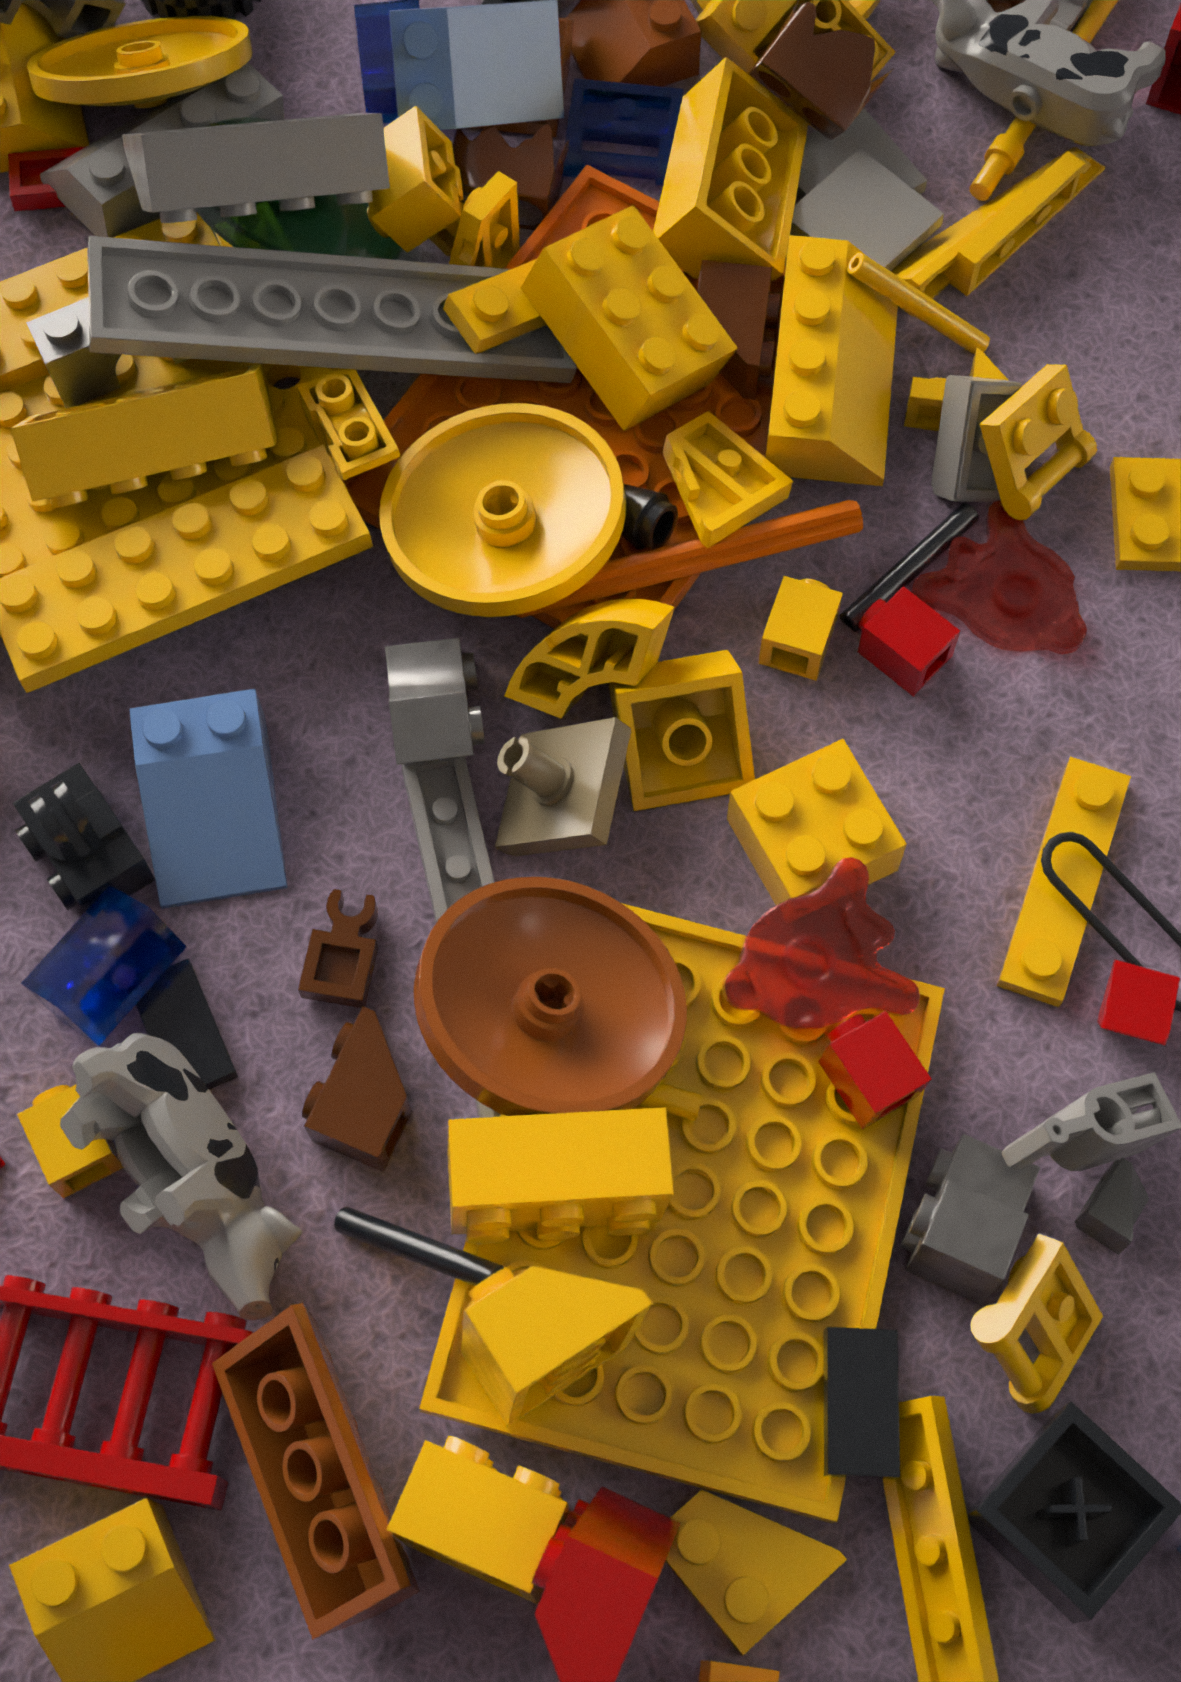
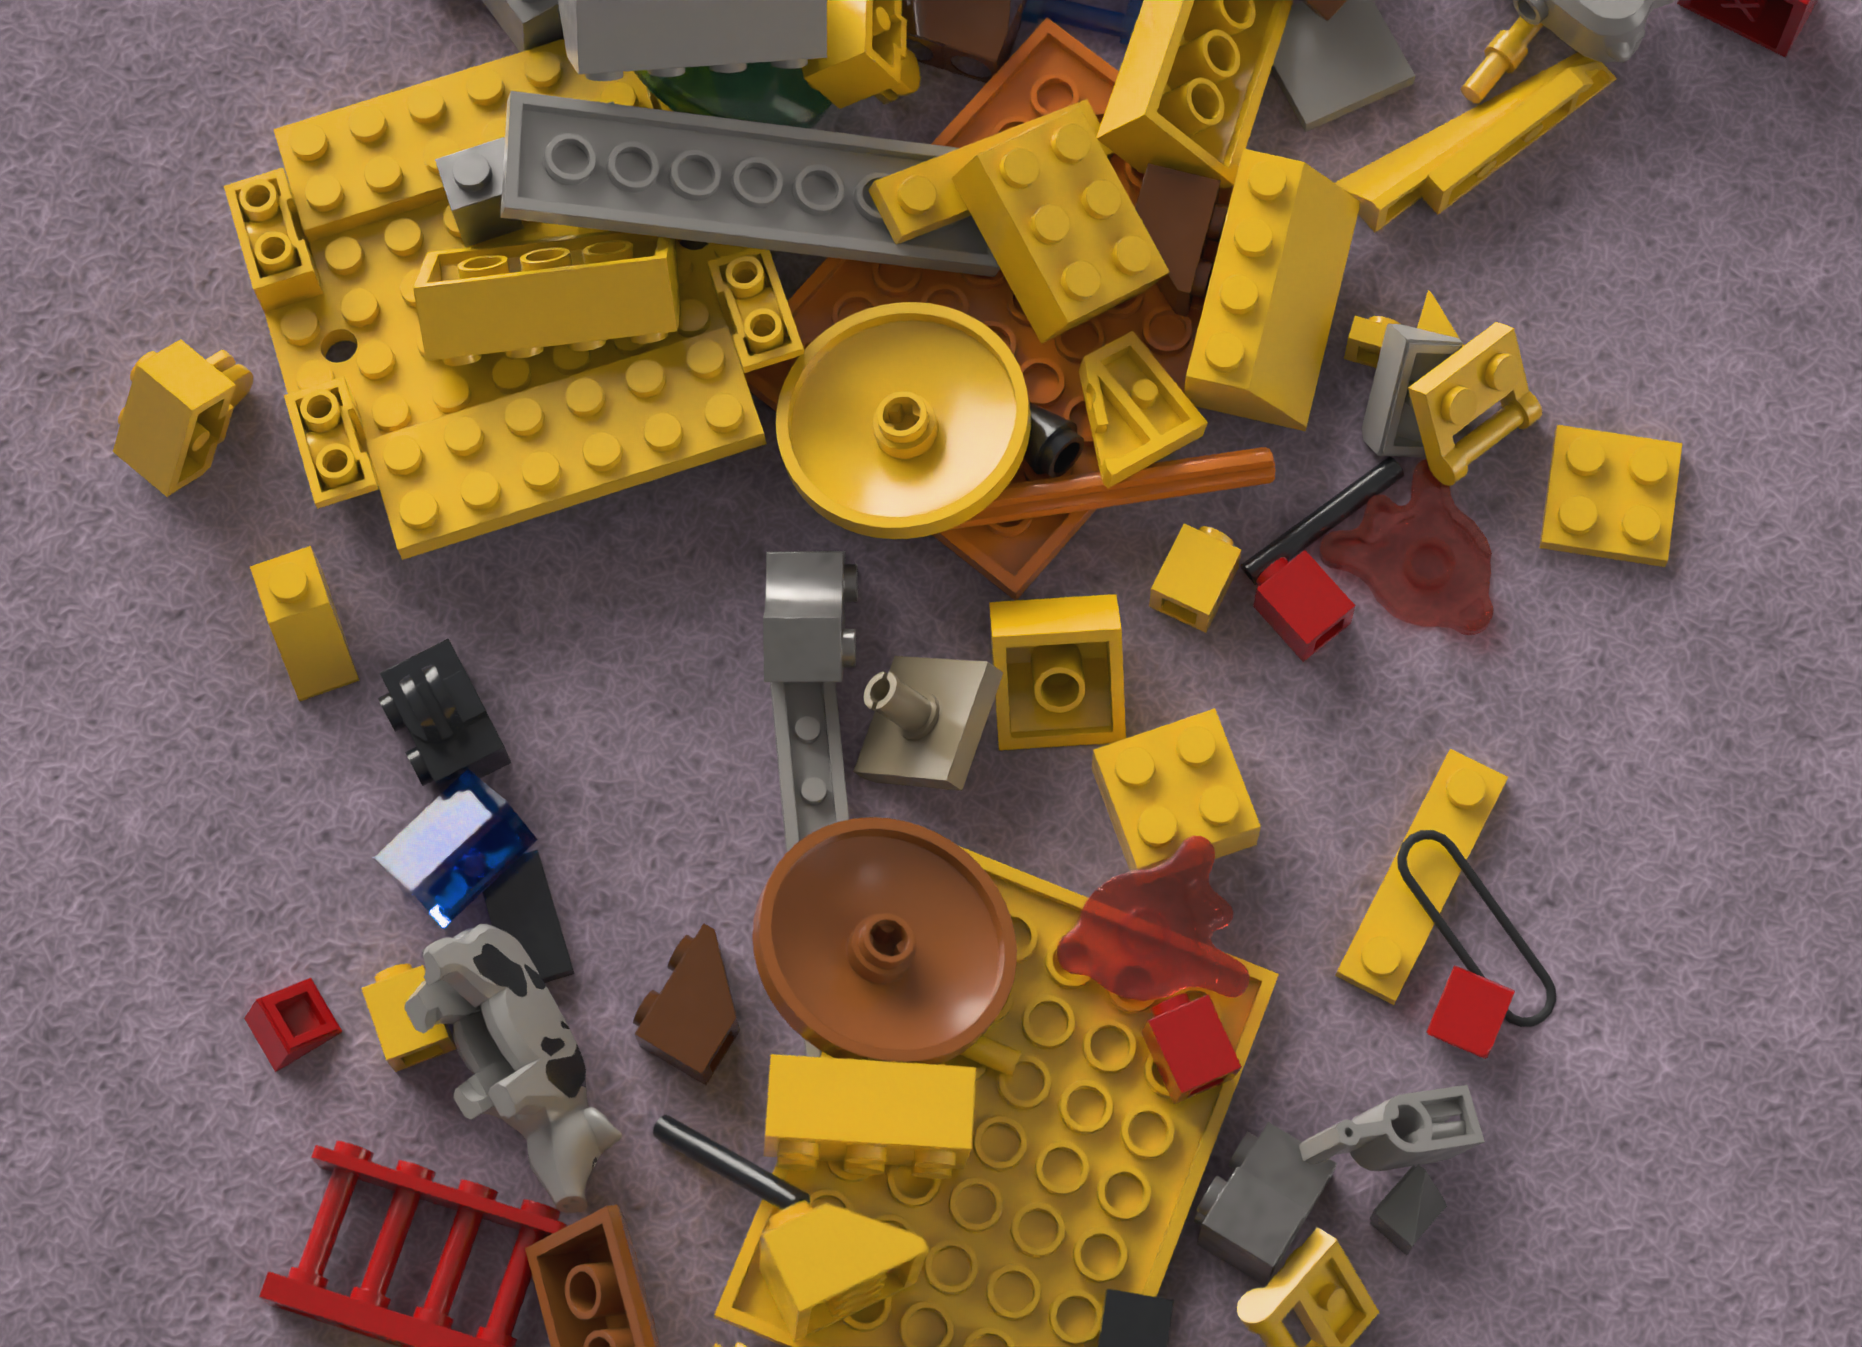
camera: 10 degrees right, 5 degrees up
(208, 797) = (573, 687): medium blue slope -> none
(341, 961) = (687, 870): reddish brown plate -> none
(488, 225) = (927, 96): yellow wing -> none
(592, 647) = (975, 581): yellow brick -> none
(869, 209) = (1337, 115): light grey tile -> none
(917, 303) = (1374, 233): yellow piece -> none

